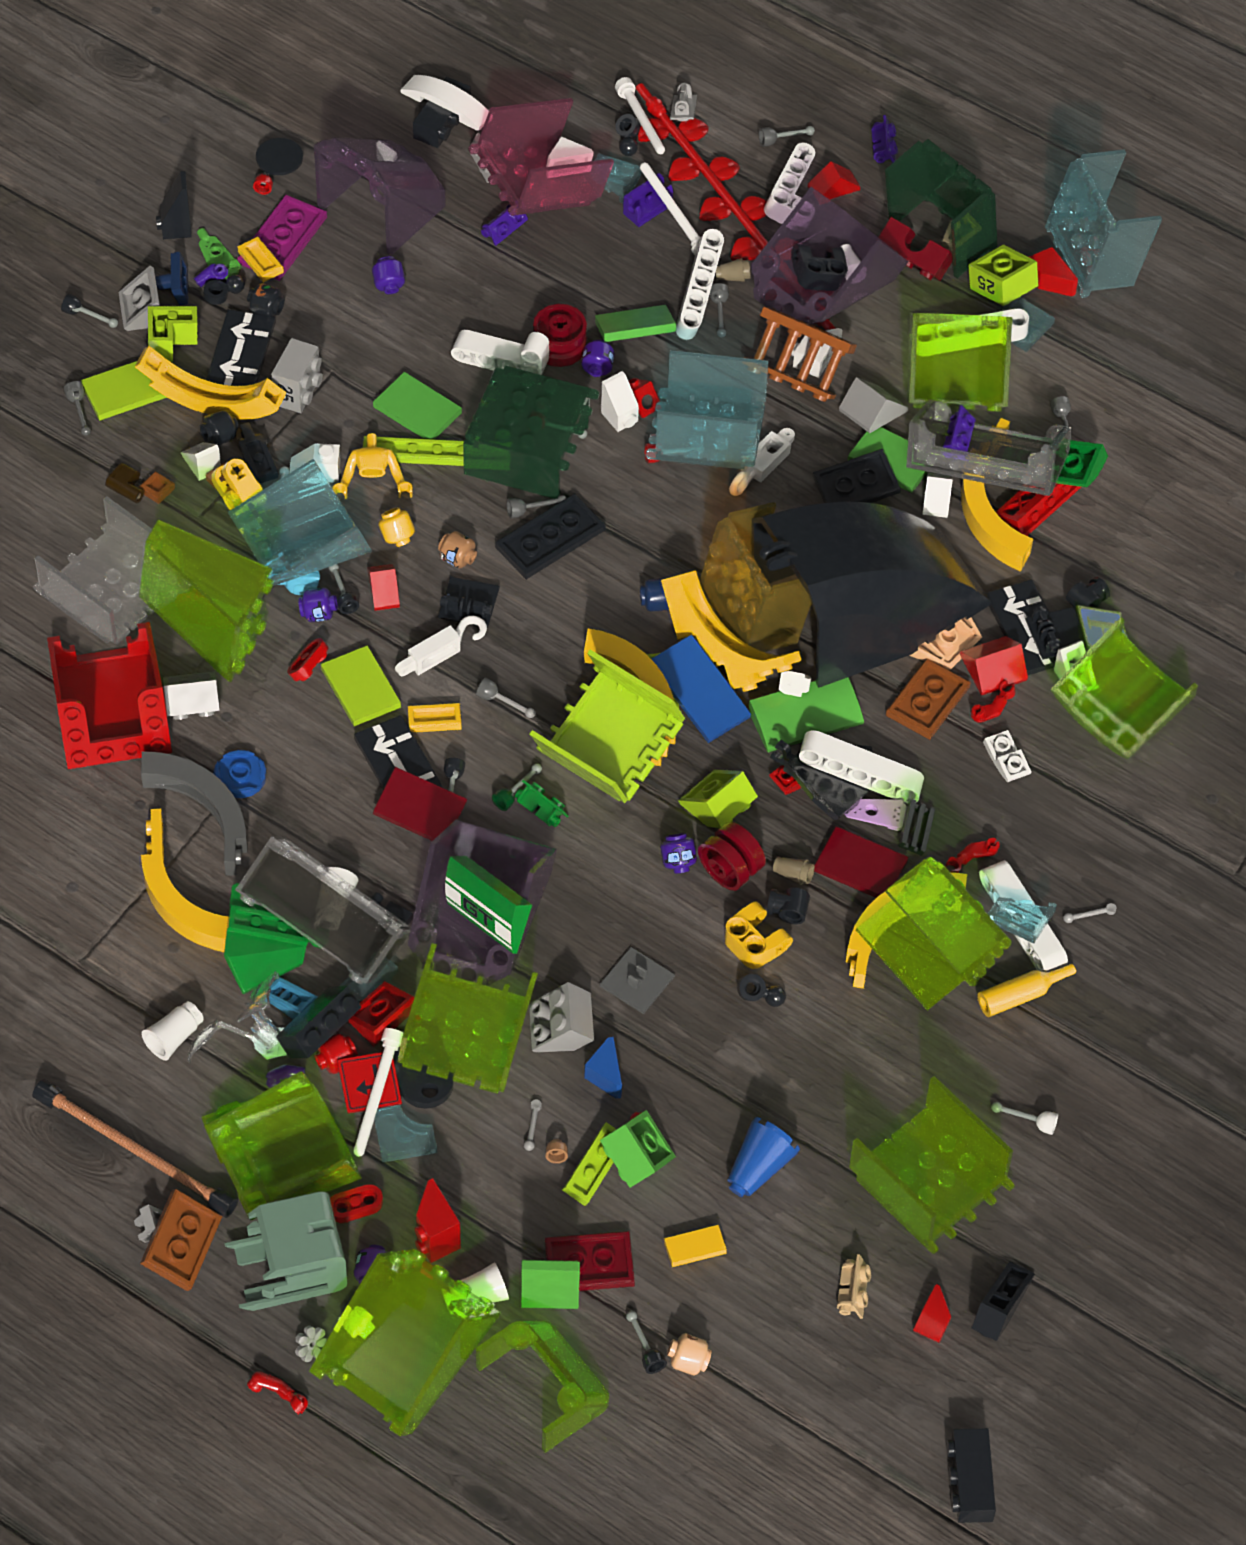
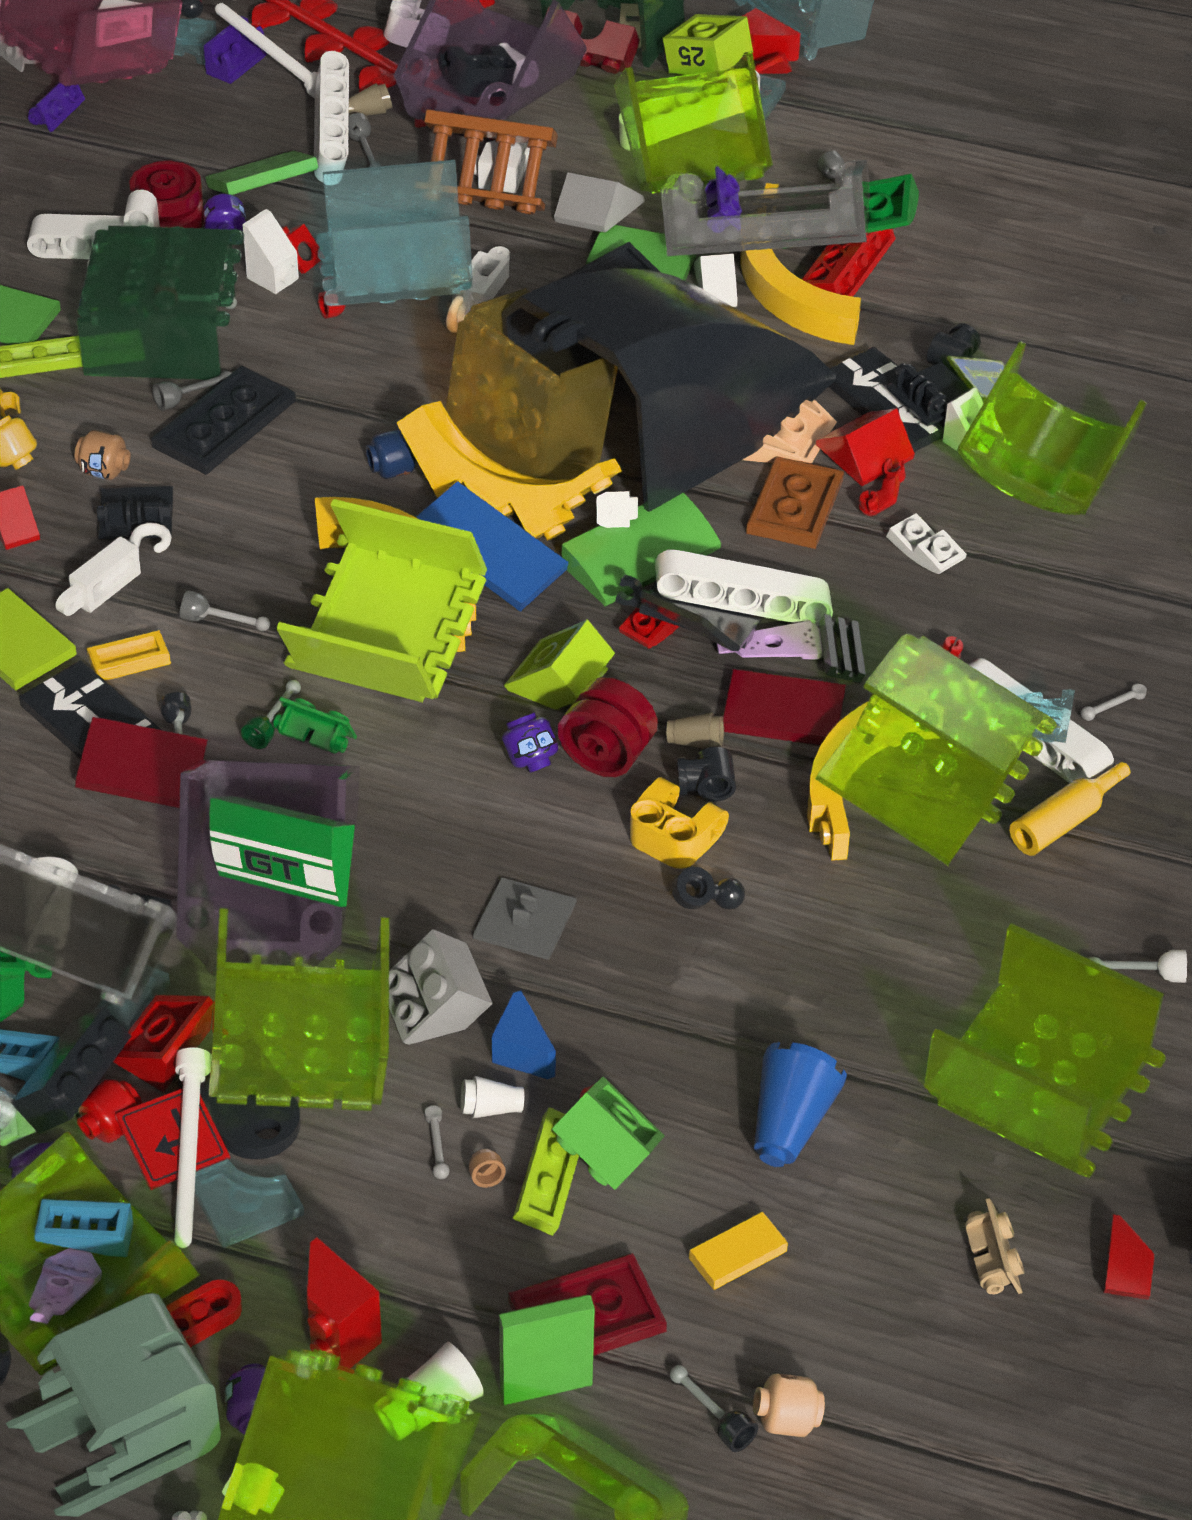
camera: 15 degrees left, 10 degrees down
(278, 1164) = (63, 1283): none -> lavender piece
(307, 1142) = (96, 1241): none -> dark azure slope
(573, 1104) = (488, 1098): none -> white cone
(1051, 299) = (774, 65): none -> red slope

